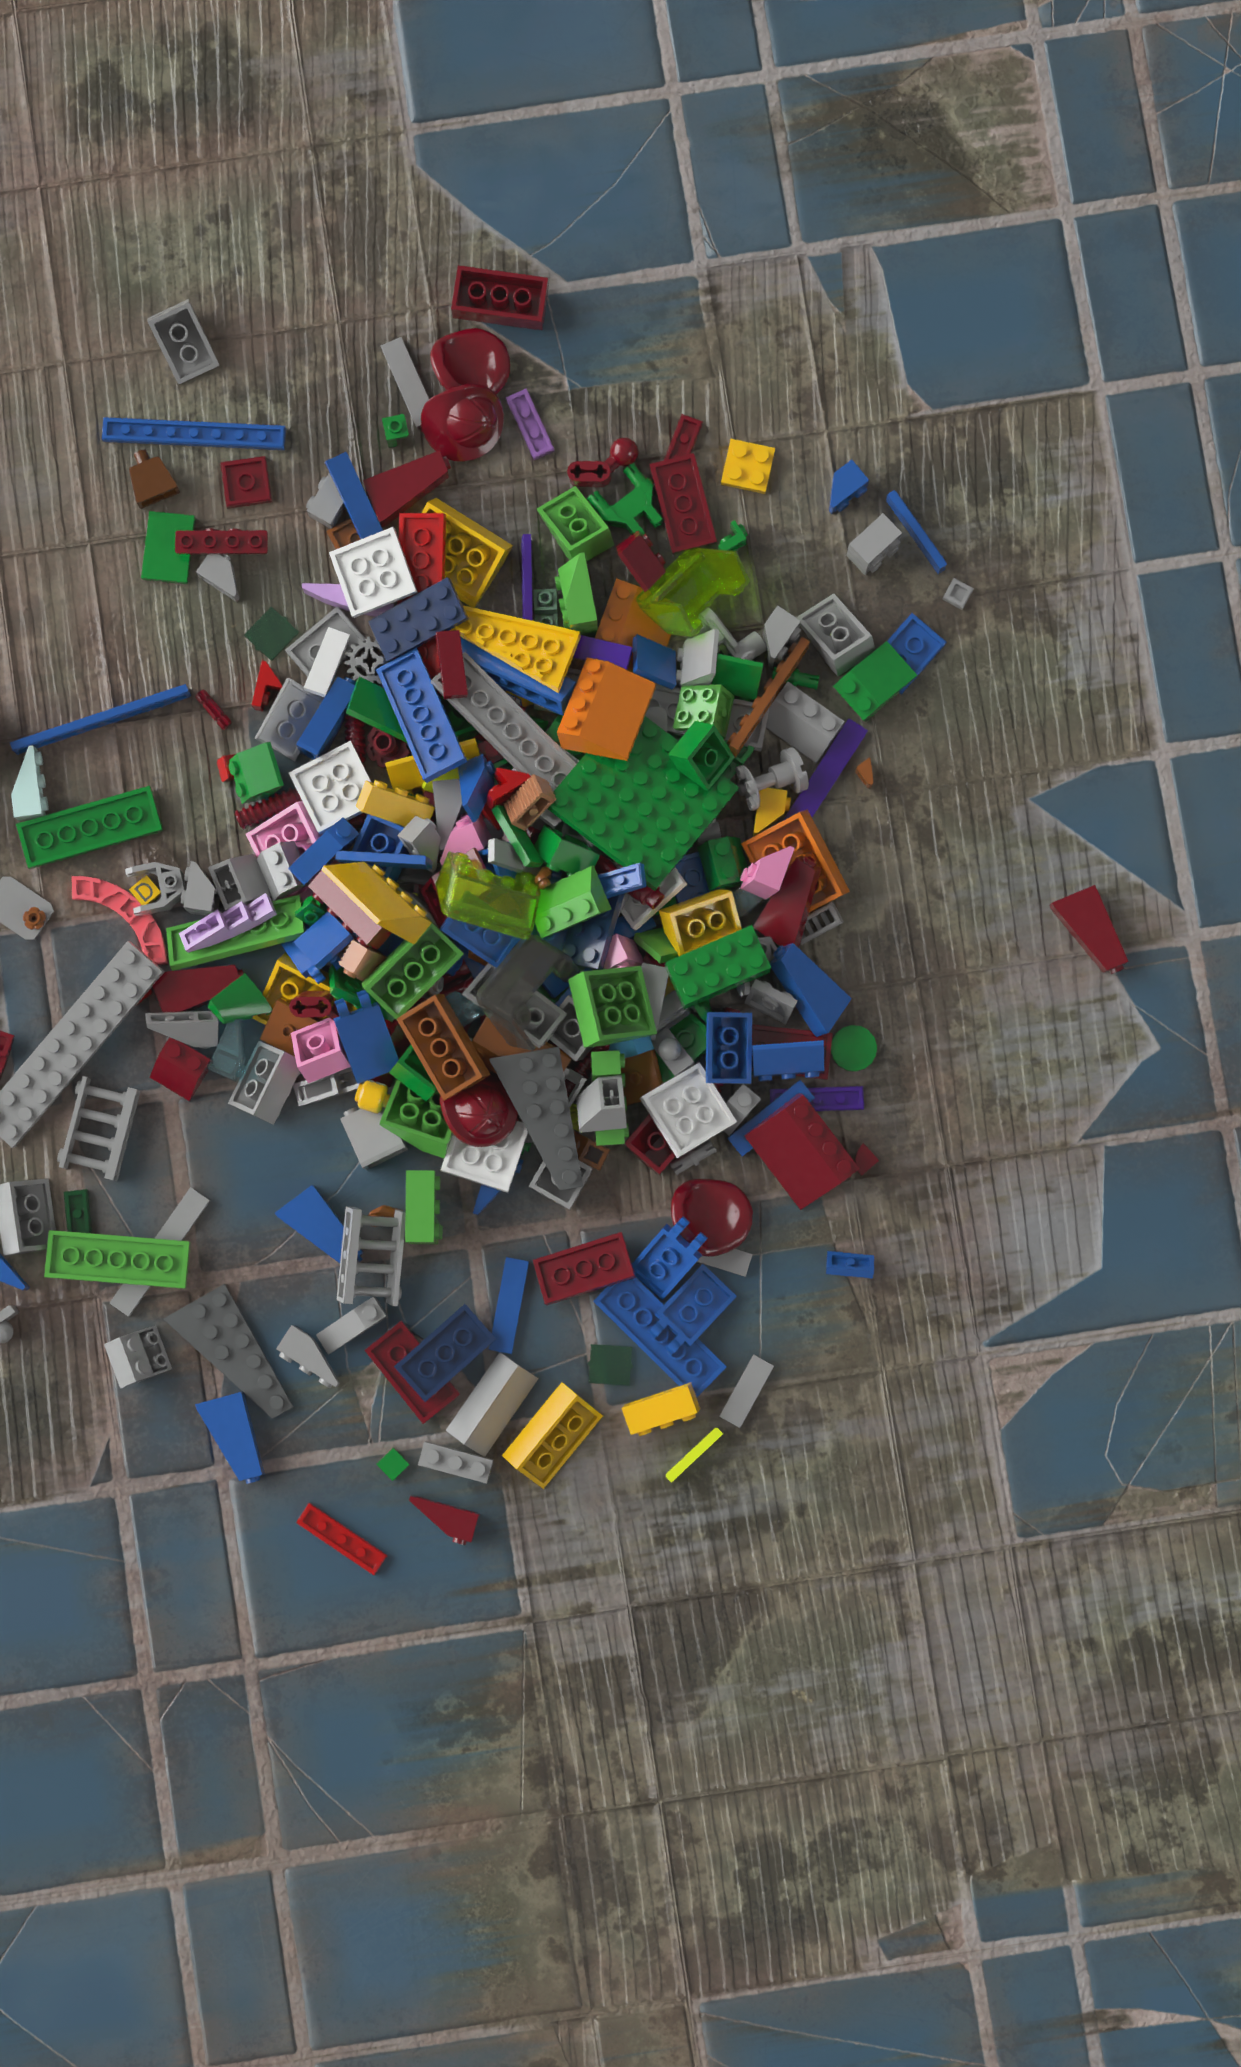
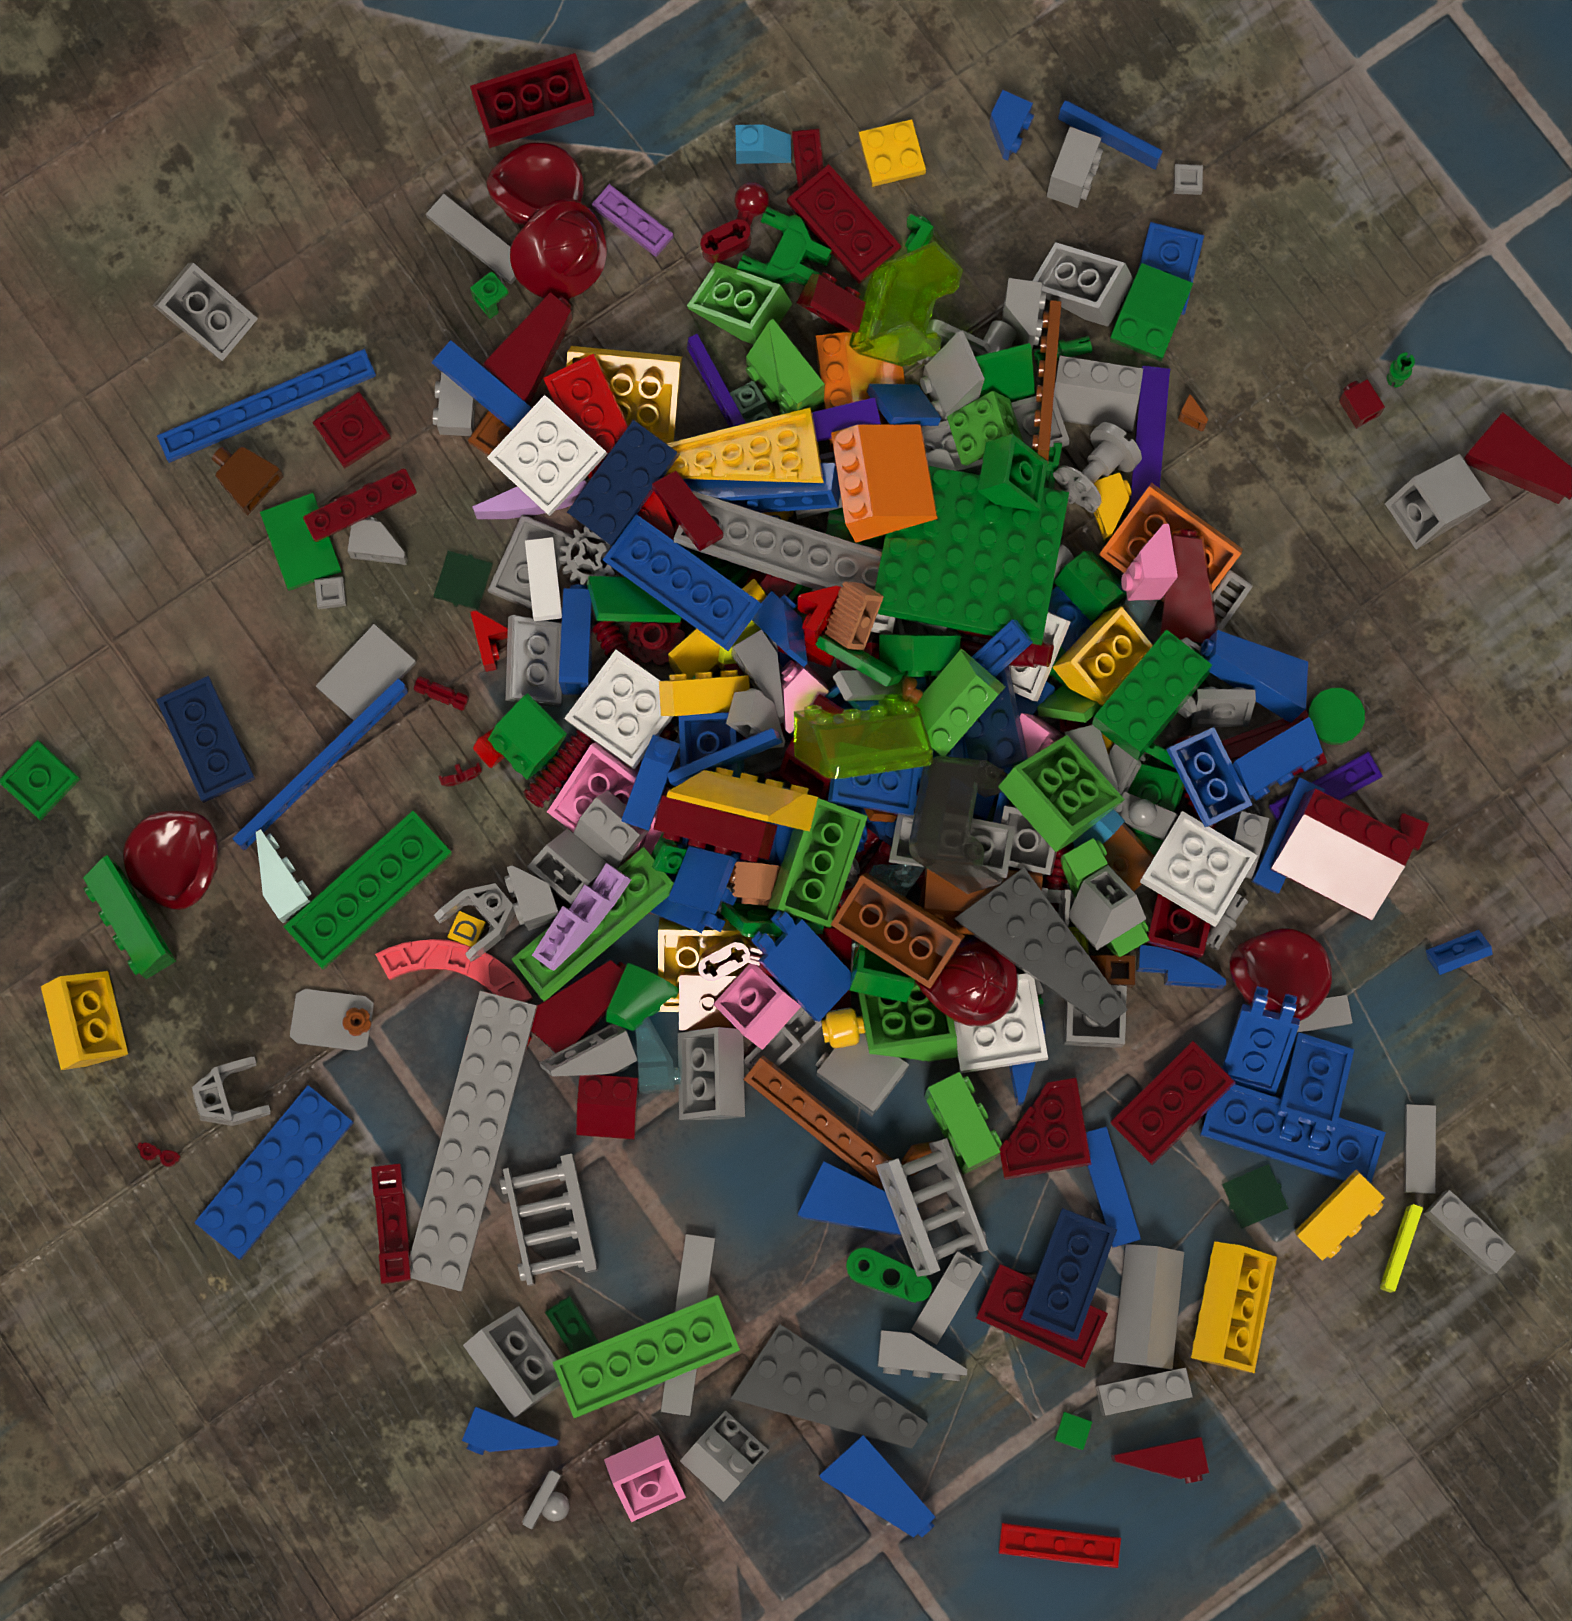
camera: 30 degrees left, 5 degrees down
(28, 660) = (205, 739): none -> dark blue plate
(73, 1344) = (644, 1478): none -> bright pink slope
(167, 667) = (365, 672): none -> light grey tile
(171, 595) = (330, 592): none -> light grey tile
(197, 777) = (460, 777): none -> dark red piece
(324, 1151) = (817, 1119): none -> dark orange plate
(326, 1304) = (909, 1286): none -> green piece
(484, 1246) = (1049, 1134): none -> dark red plate
(640, 1174) = (1178, 968): none -> blue slope
(653, 413) = (762, 145): none -> dark azure slope
(748, 1468) = (1469, 1232): none -> light grey brick
(995, 825) = (1361, 403): none -> dark red brick
(1012, 926) = (1437, 501): none -> light grey slope
(1034, 811) = (1400, 369): none -> green pin

